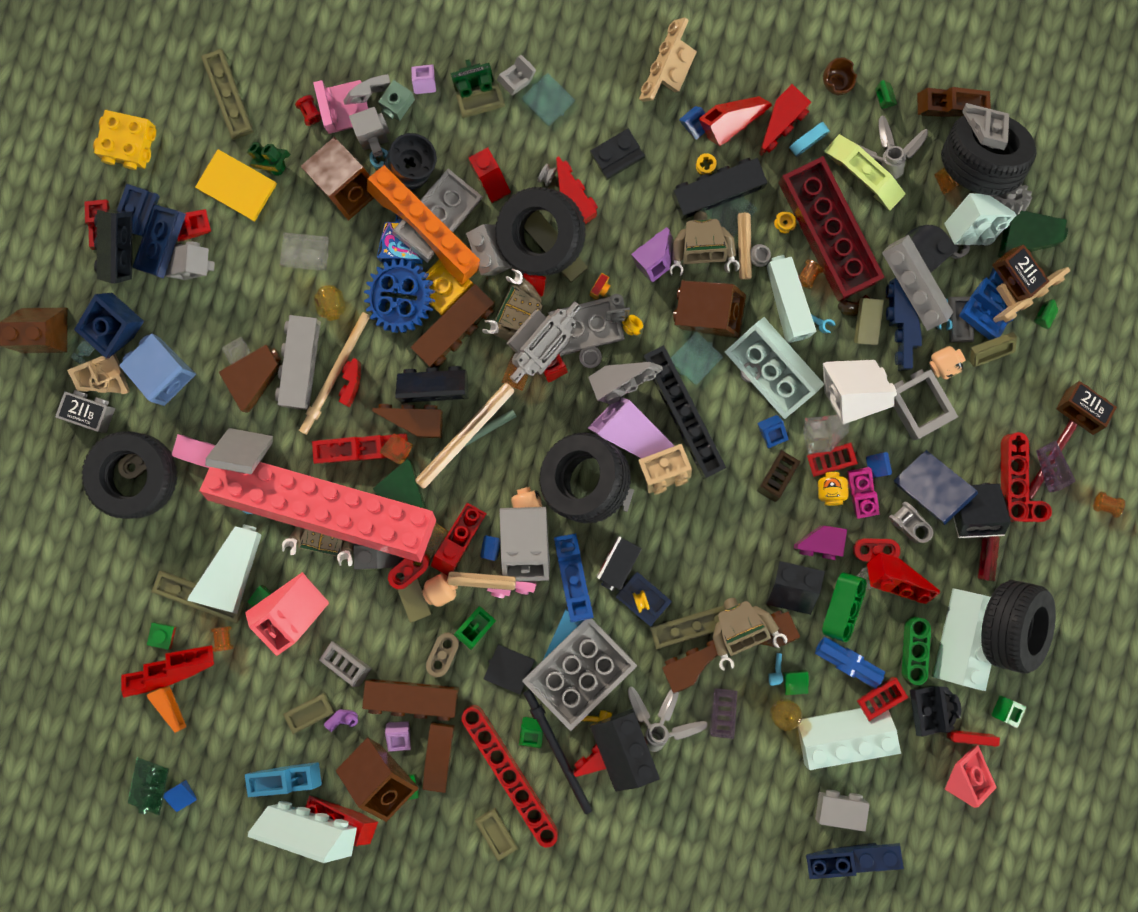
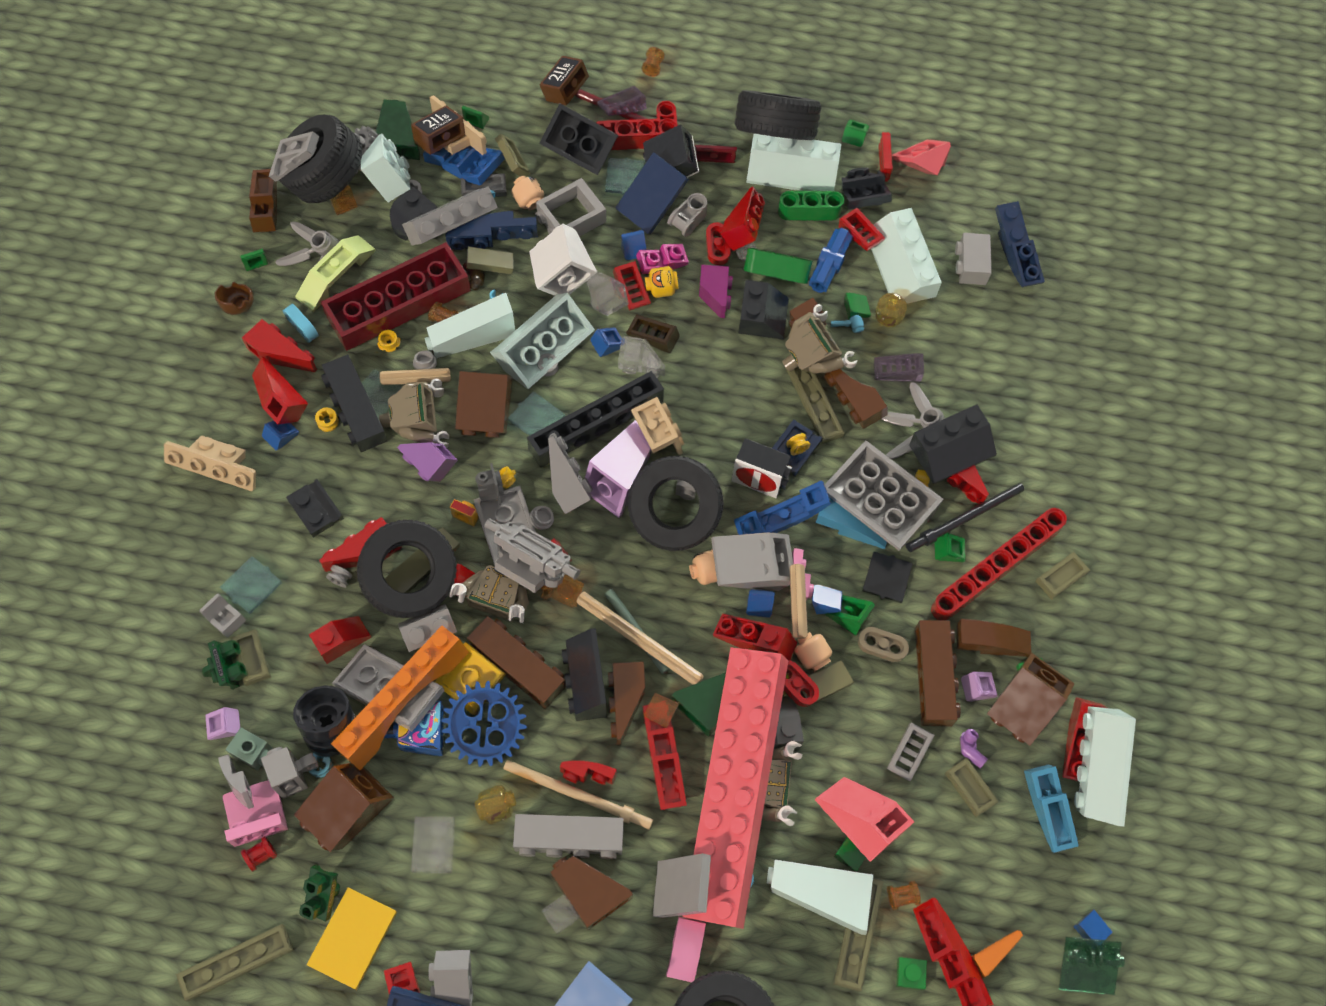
camera: 100 degrees left, 20 degrees down
(487, 608) = (826, 599): none -> slope
(749, 460) = (638, 356): none -> clear slope
(968, 462) = (622, 174): none -> clear light blue piece
(1005, 416) = (578, 139): none -> black slope

